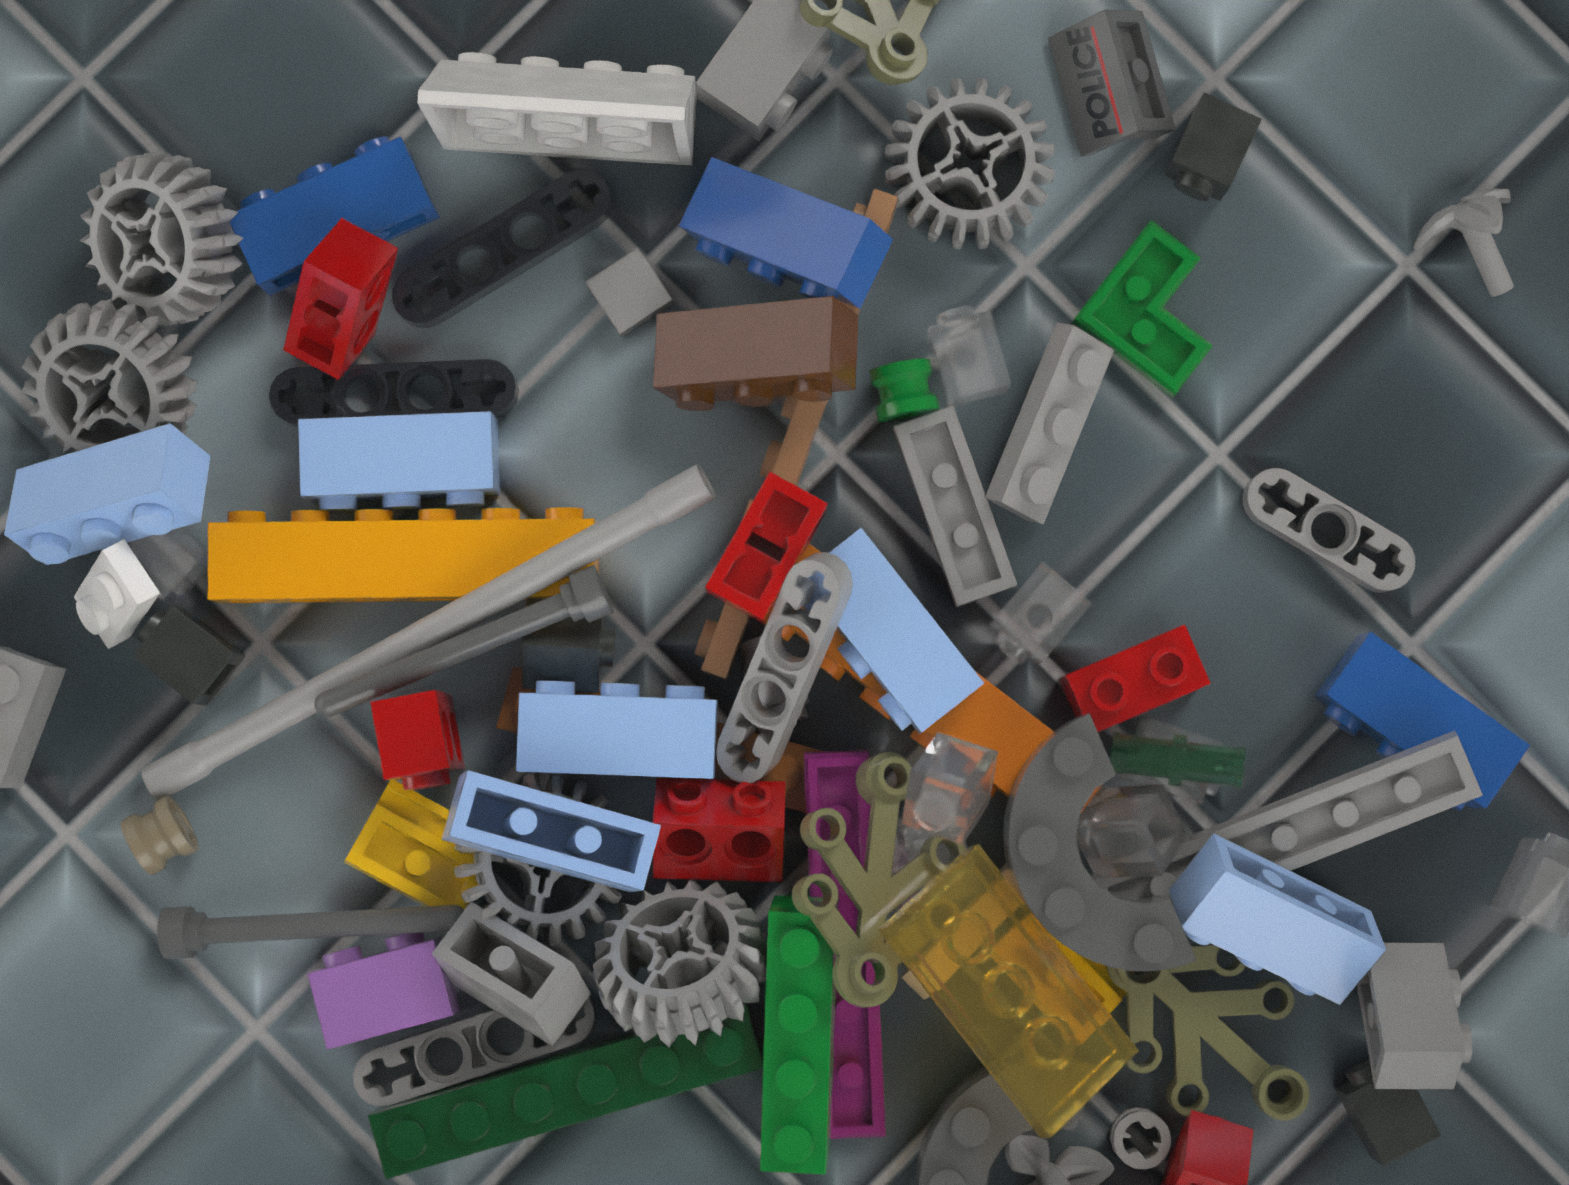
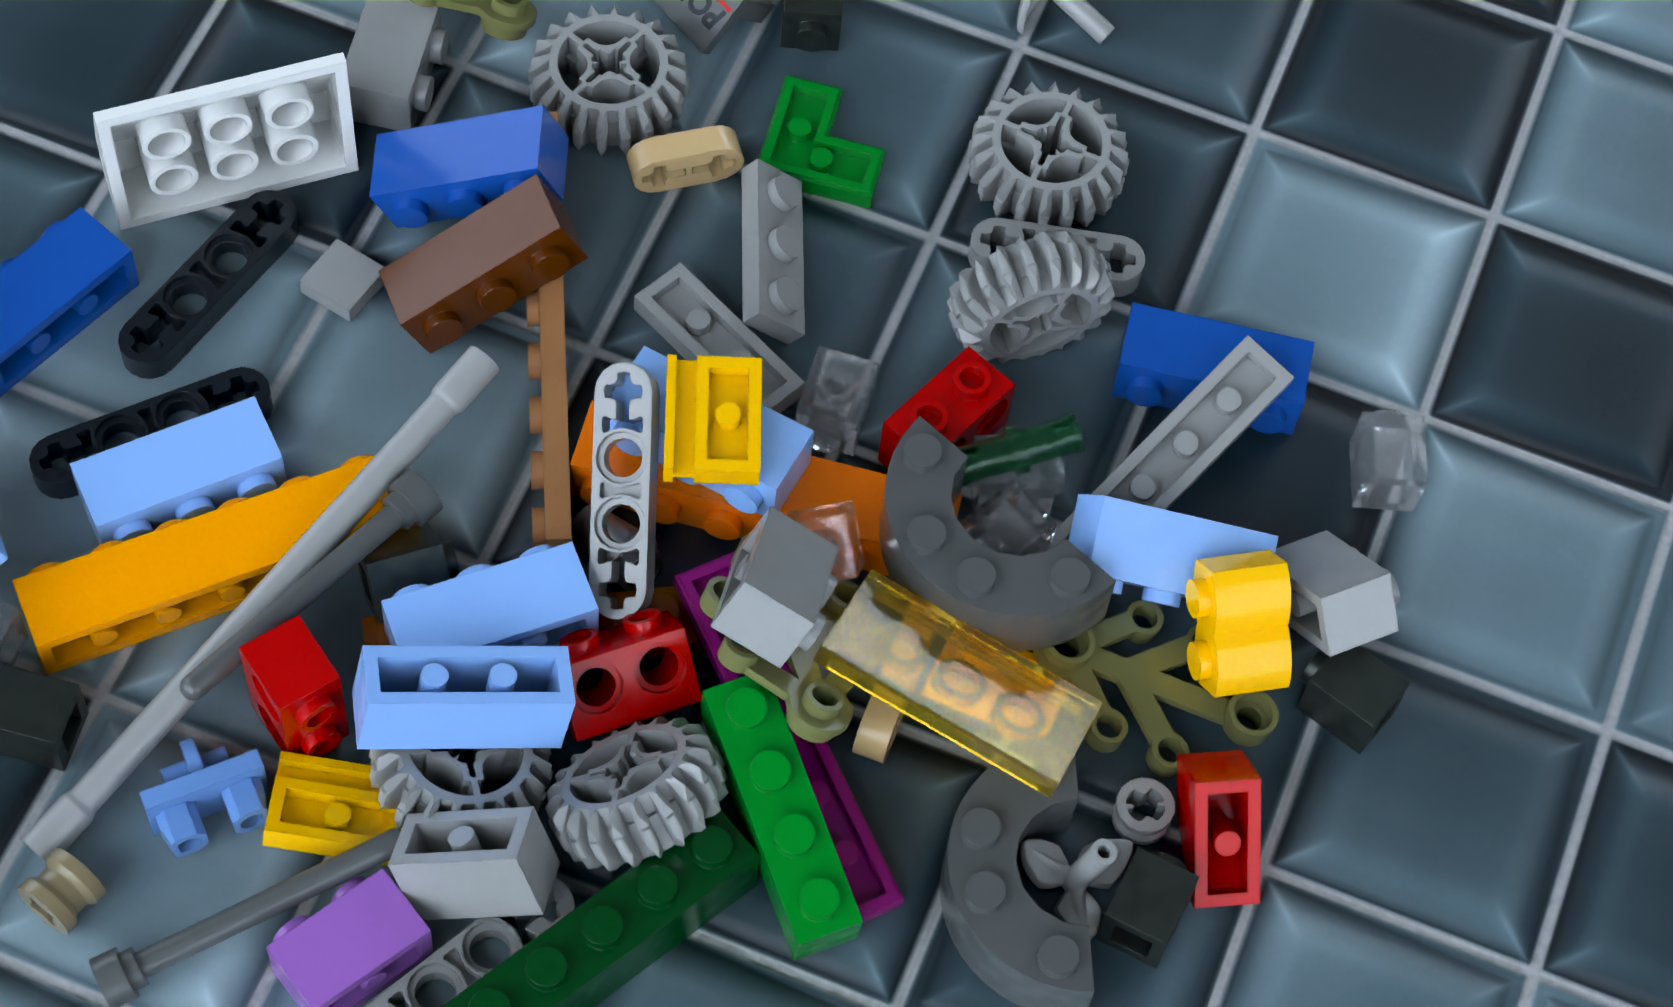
camera: 35 degrees left, 25 degrees down
(283, 800) = (204, 787): none -> medium blue hips
(340, 298) = (73, 348): red brick -> none
(766, 547) = (562, 396): red brick -> none
(871, 852) = (777, 588): none -> light grey brick
(888, 646) = (713, 419): none -> yellow plate
(903, 390) = (627, 265): green wheel -> none
(967, 356) = (676, 219): clear brick -> none
(1008, 284) = (685, 158): none -> tan beam
(1272, 589) = (1031, 297): none -> light grey gear
(1307, 1020) = (1241, 623): none -> yellow brick
(1409, 384) = (1026, 130): none -> light grey gear

